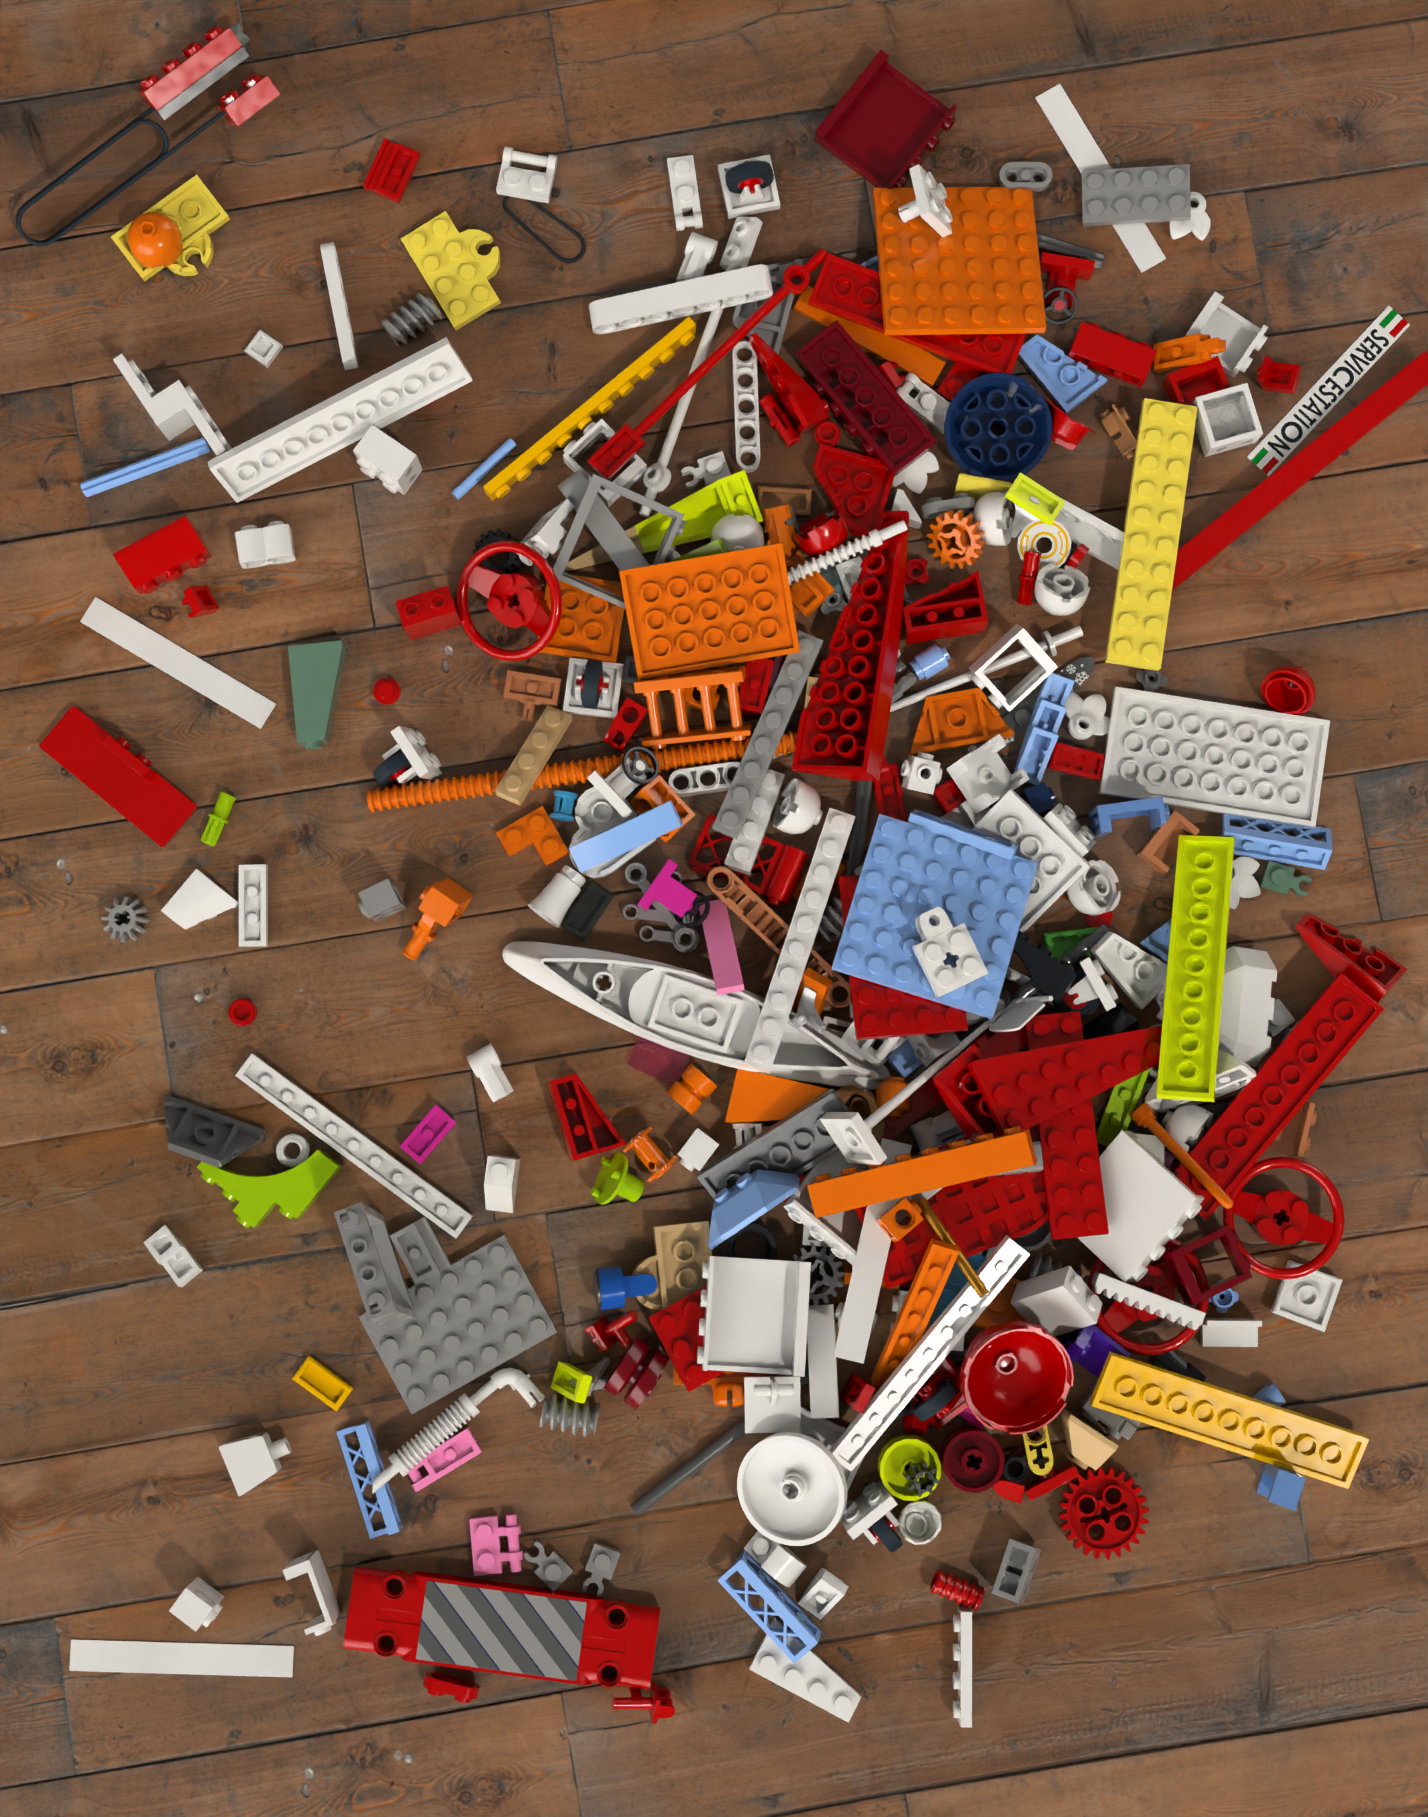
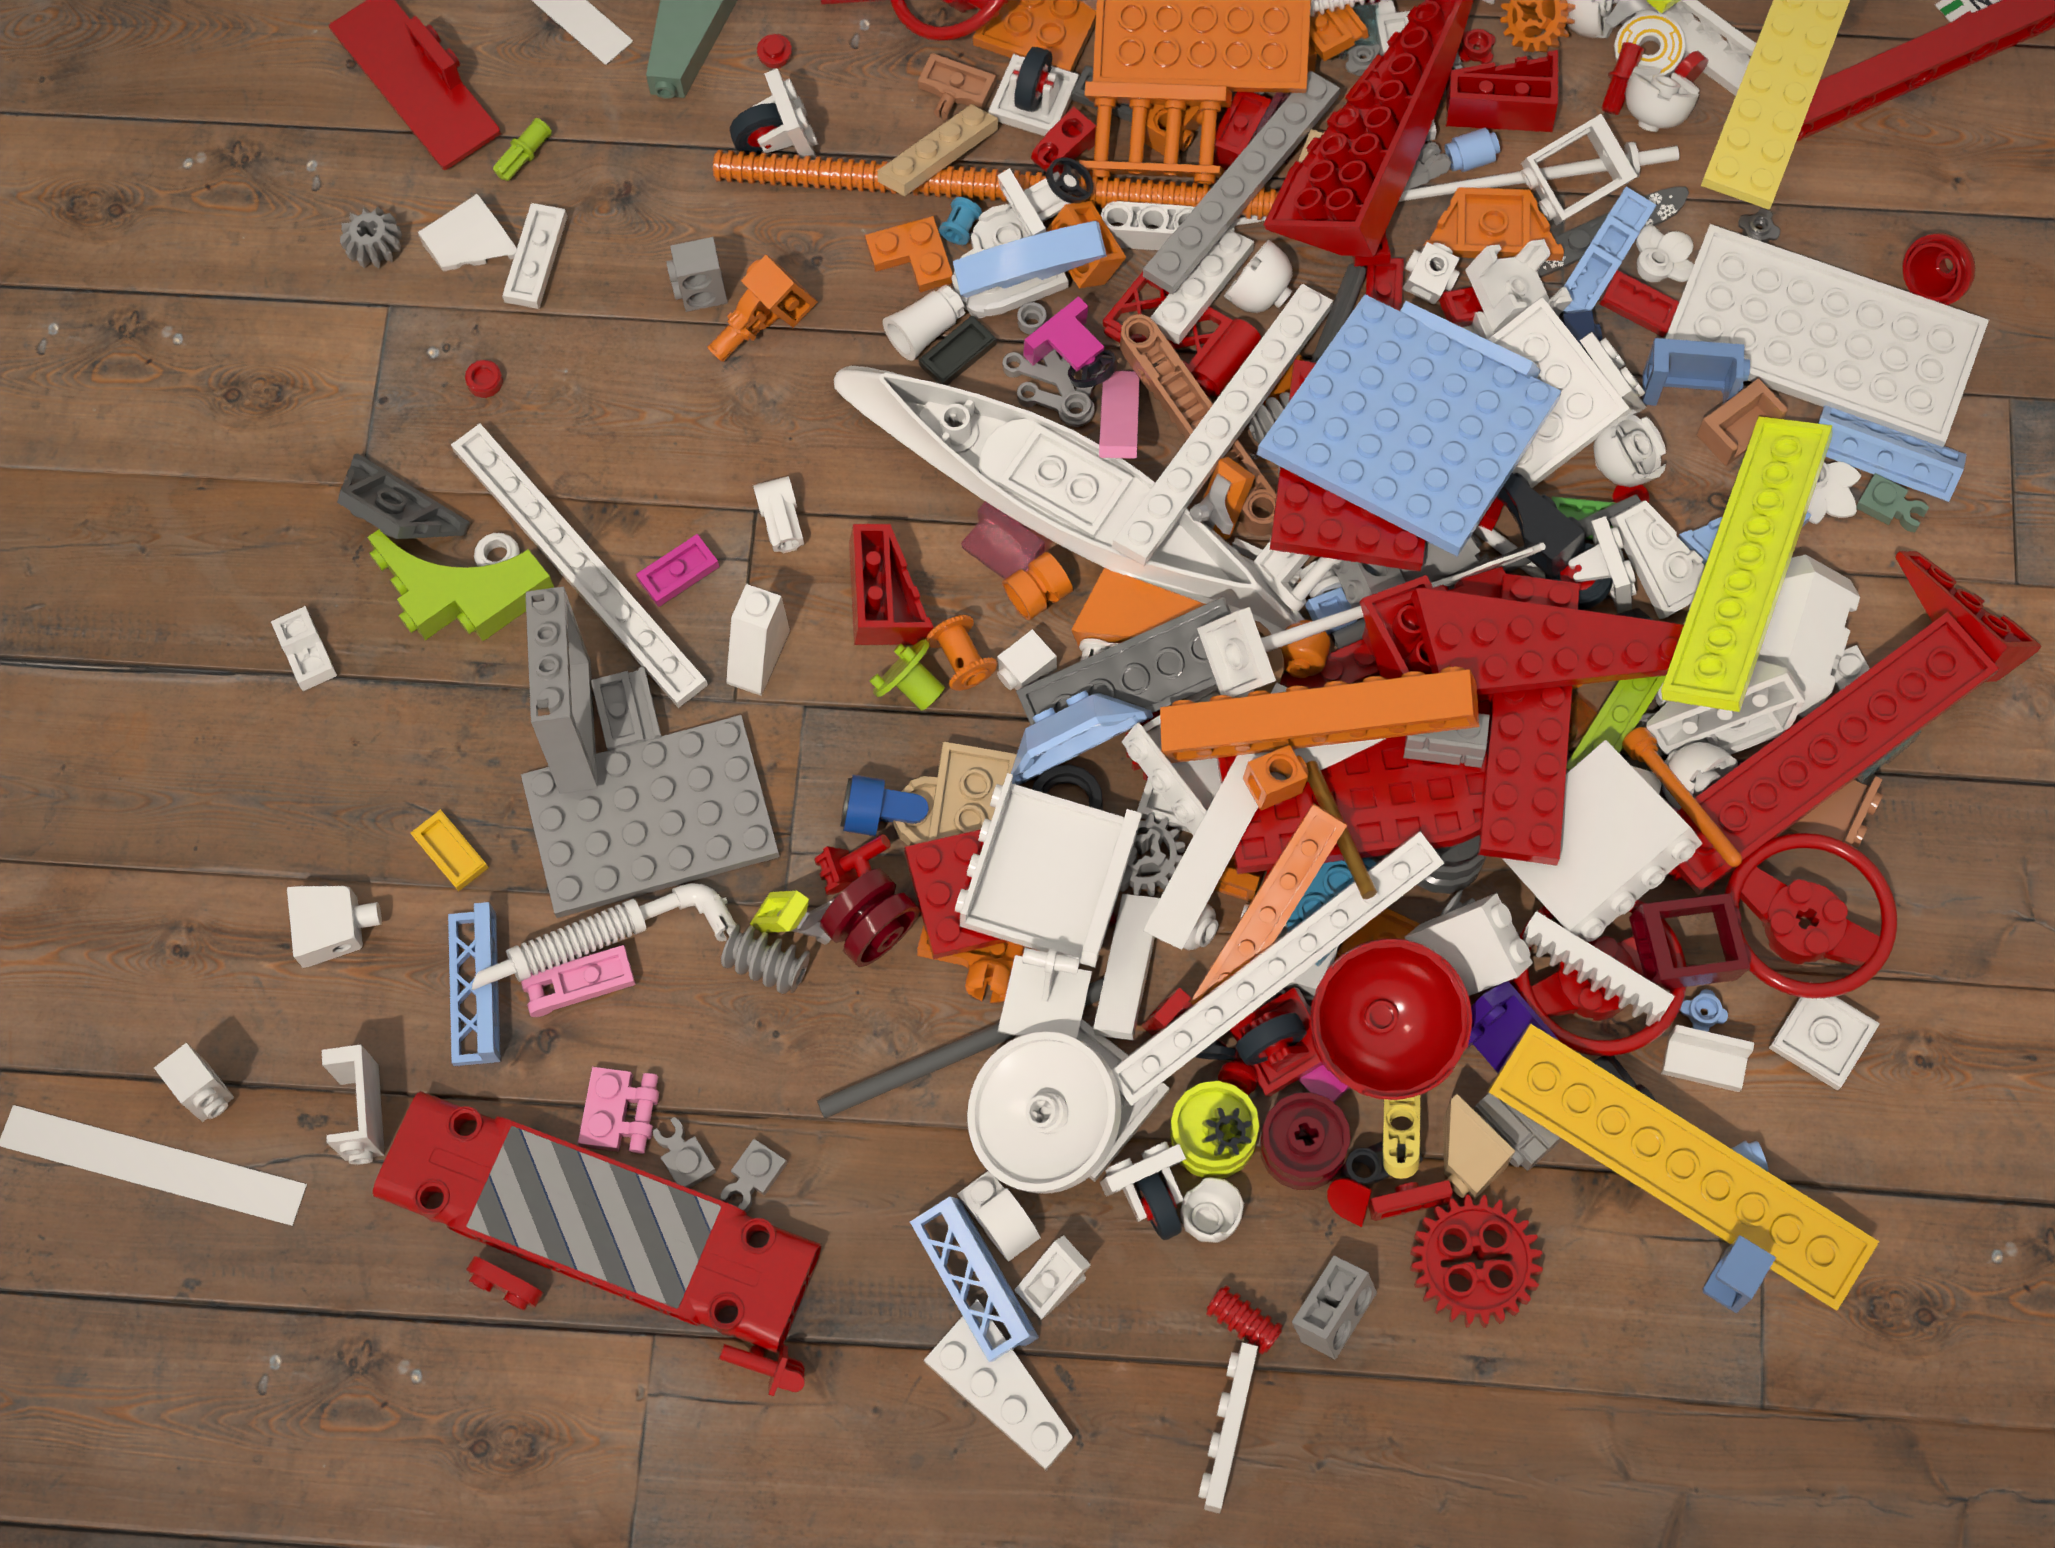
camera: 20 degrees right, 15 degrees down
(942, 940) = (1408, 437): white plate -> none

